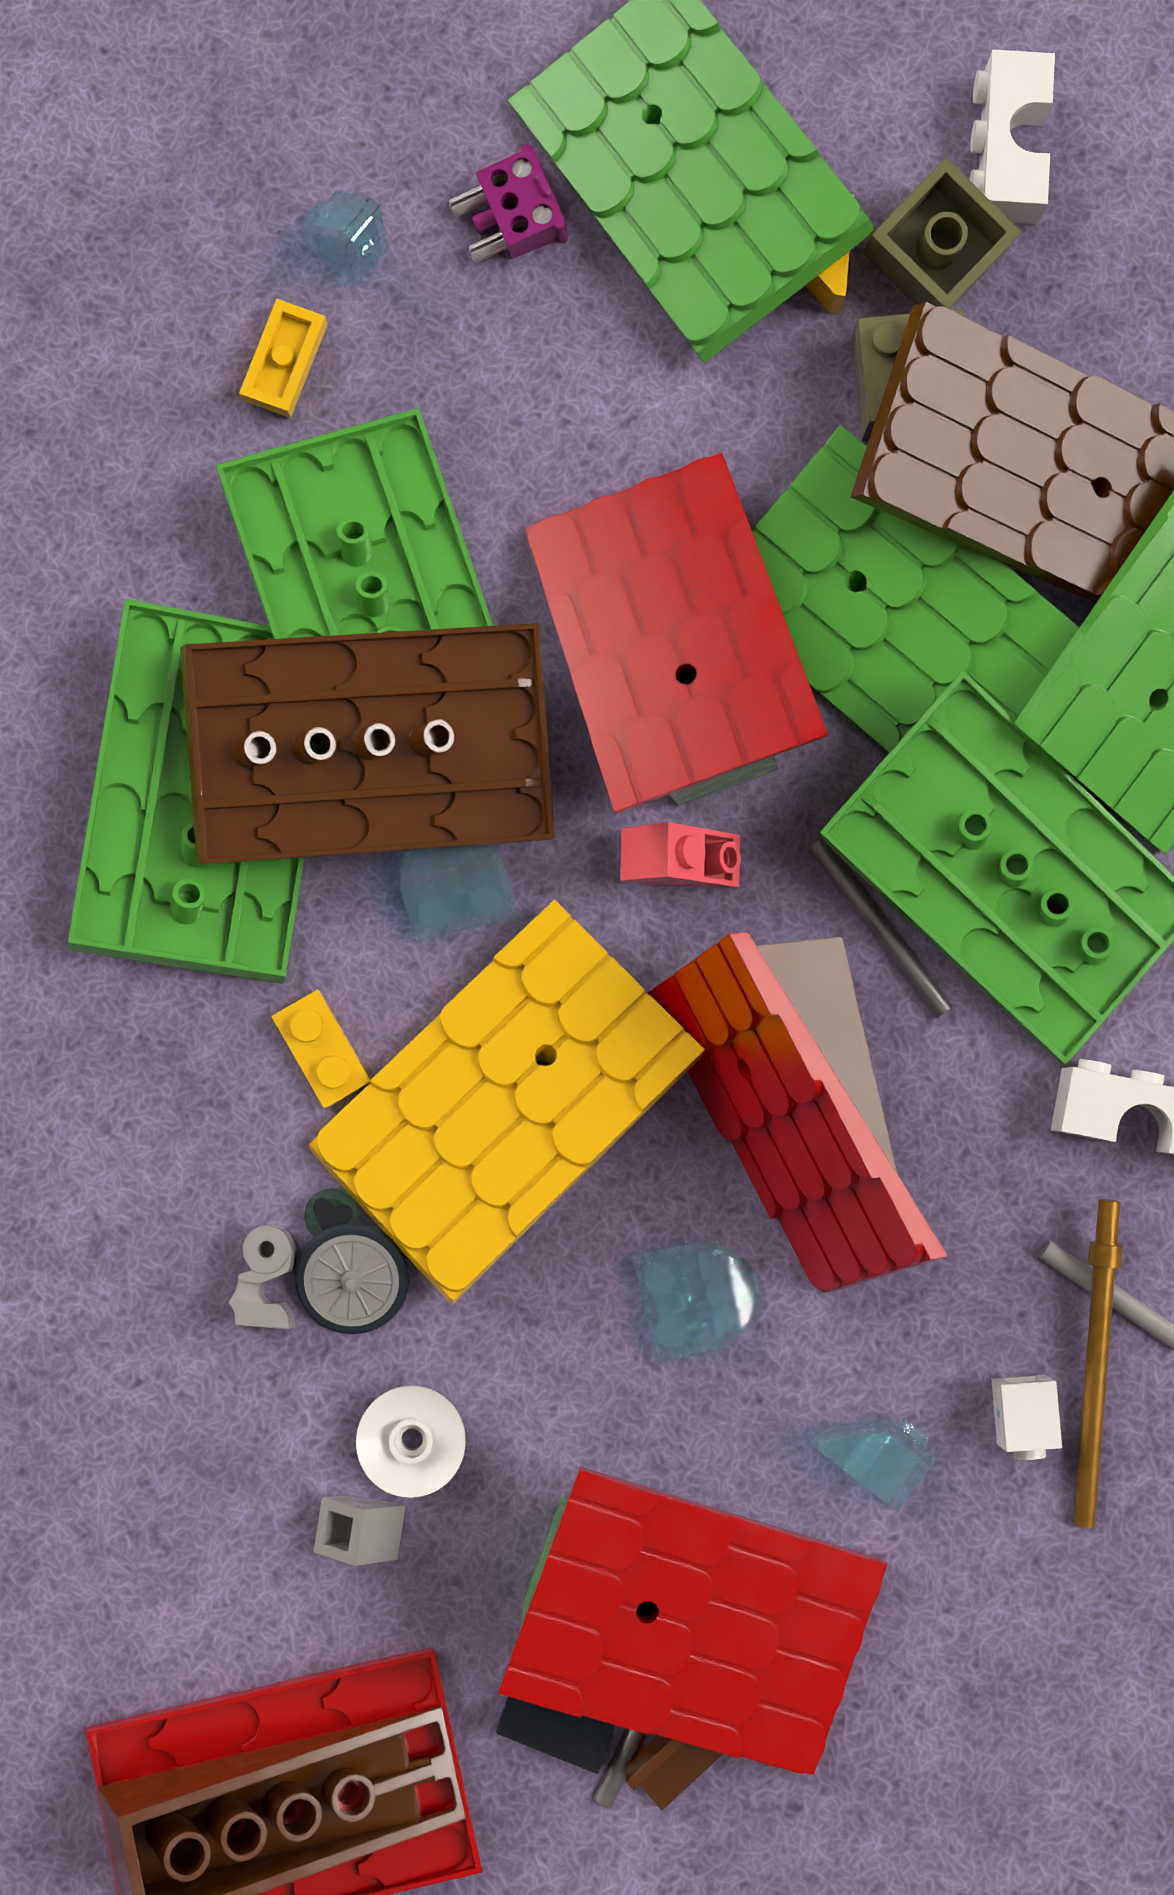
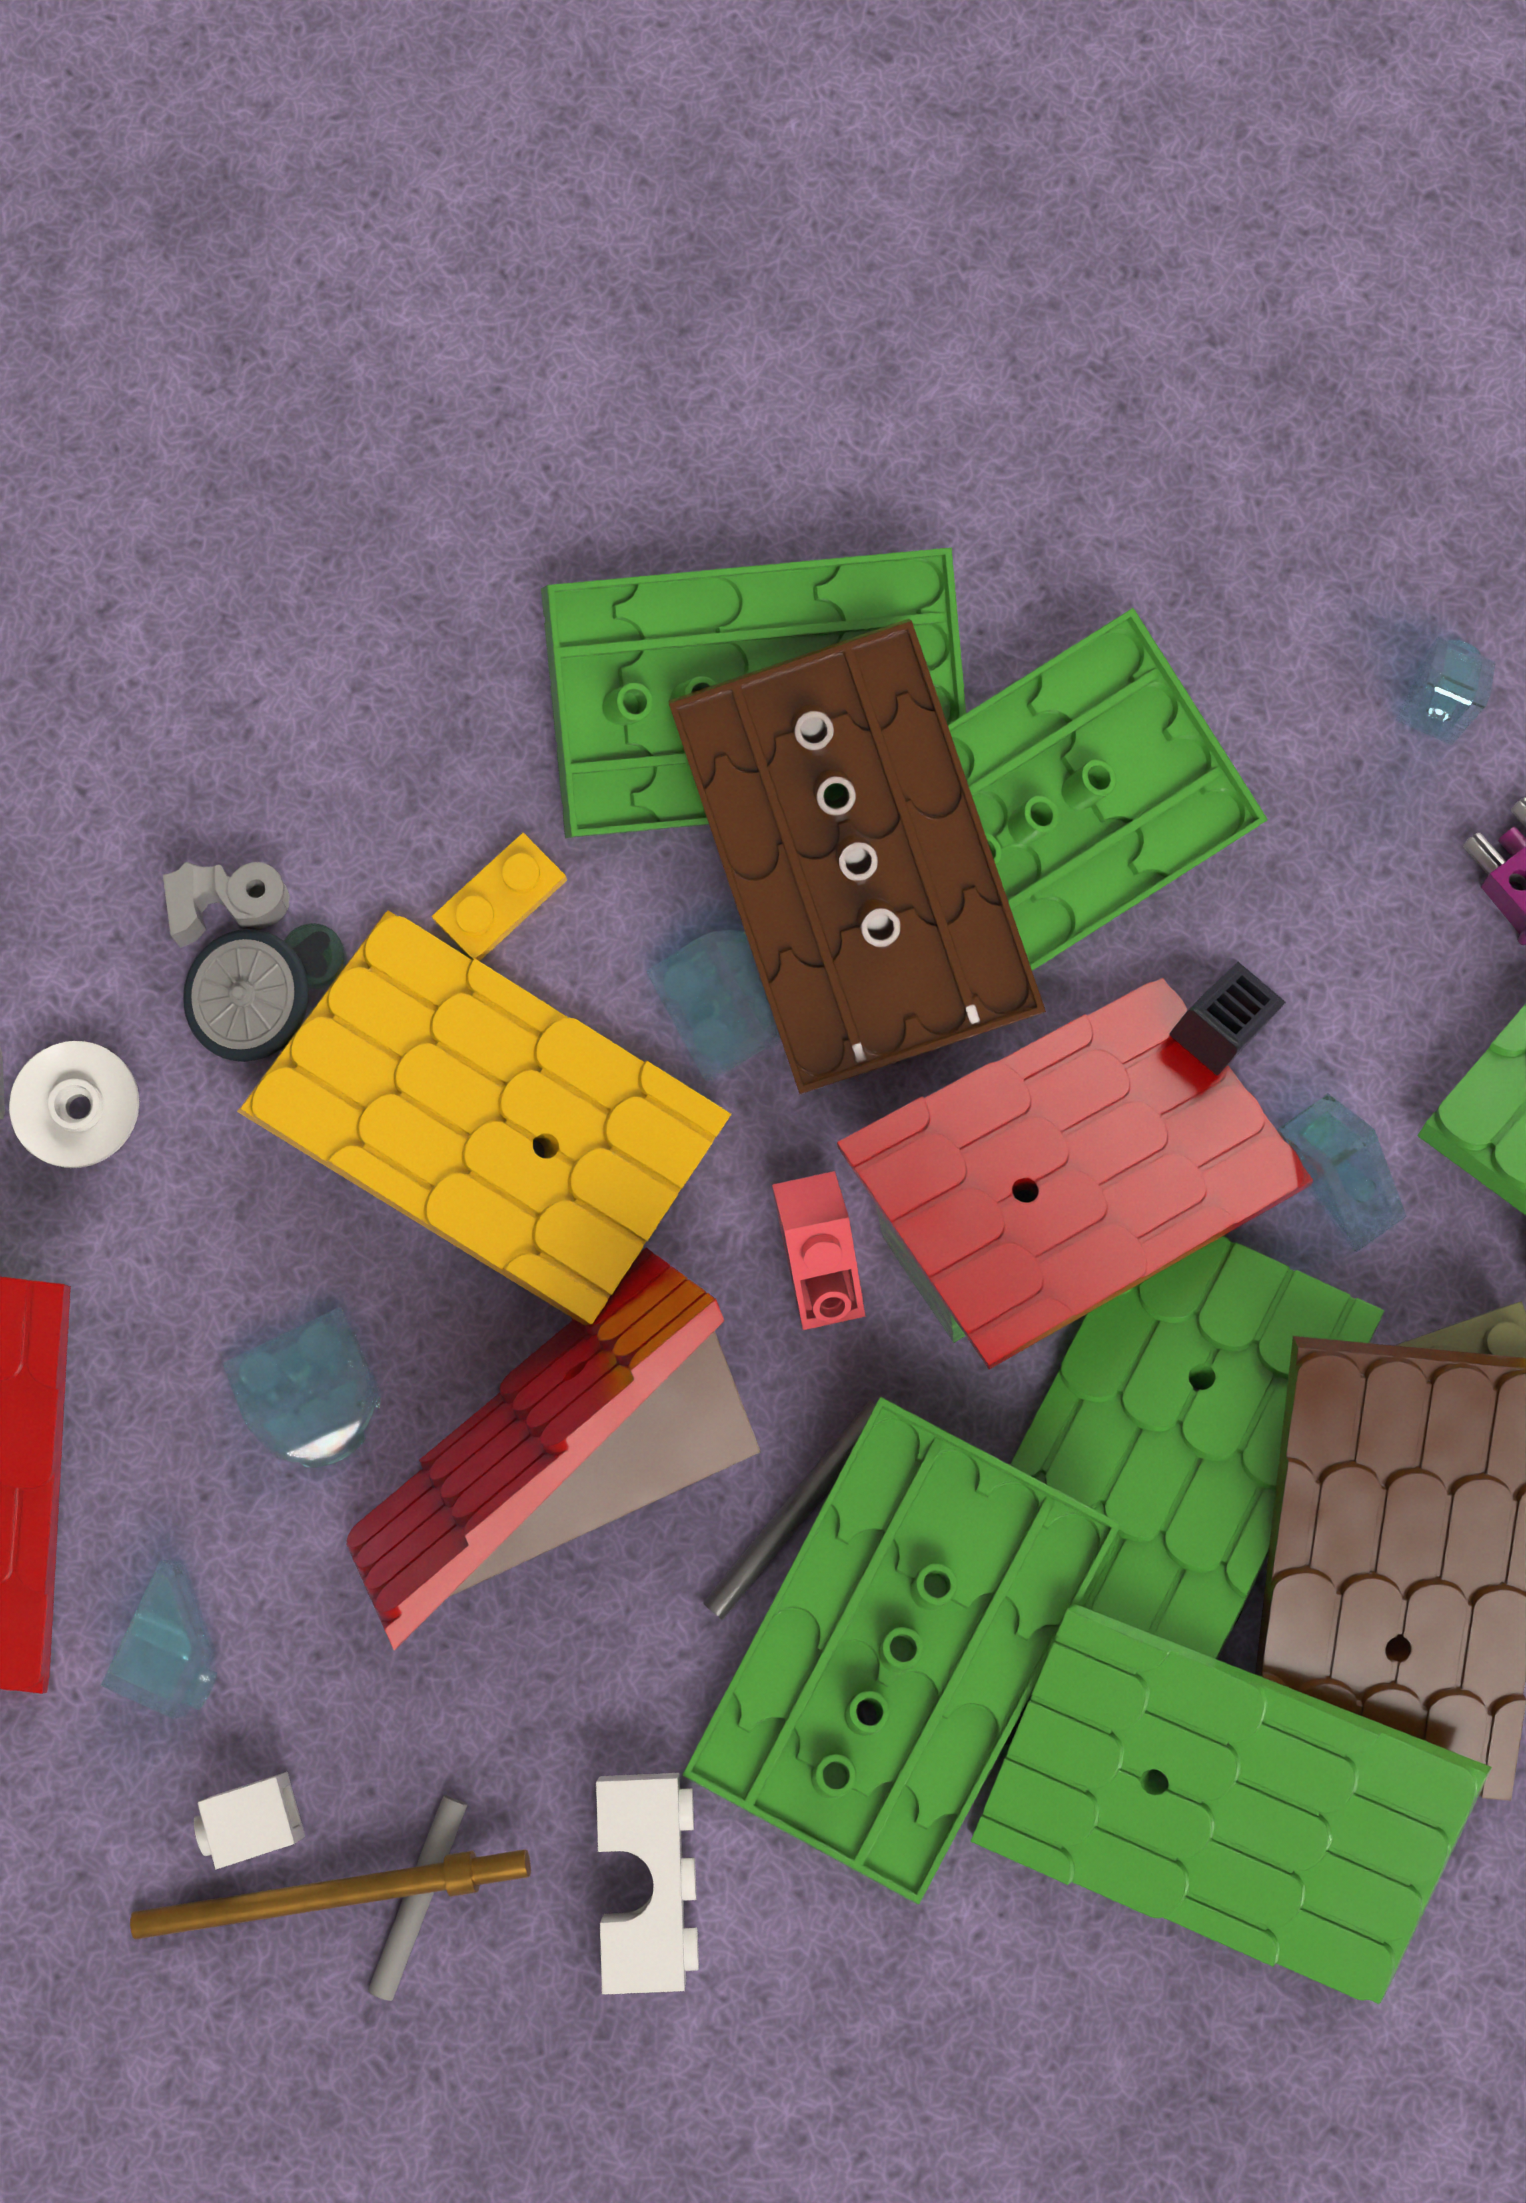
camera: 75 degrees right, 5 degrees down
(283, 358) = (1285, 658): yellow plate -> none
(581, 491) = (1226, 1018): none -> black slope
(716, 424) = (1346, 1170): none -> clear light blue slope

